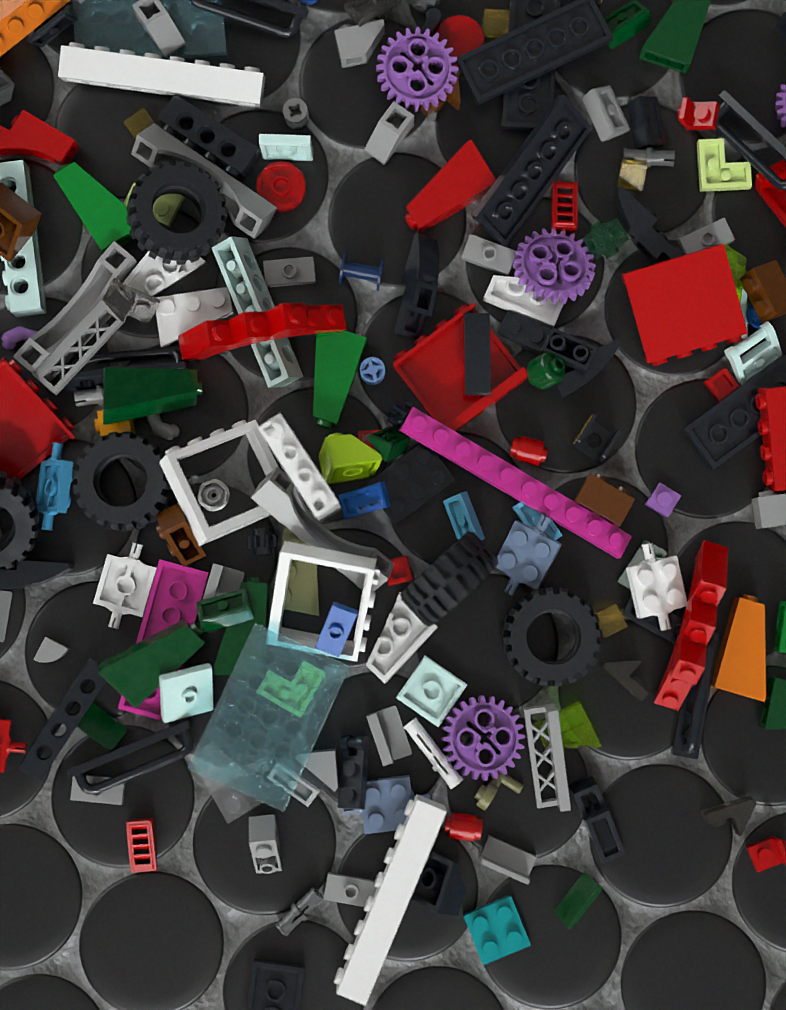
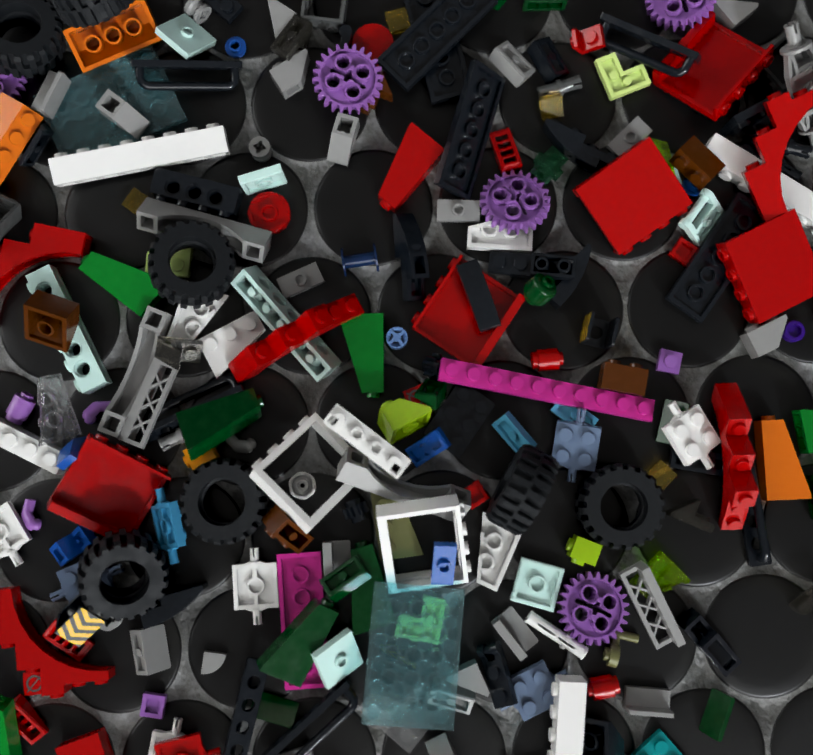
camera: 20 degrees left, 0 degrees up
(494, 671) = (583, 550): none -> lime brick

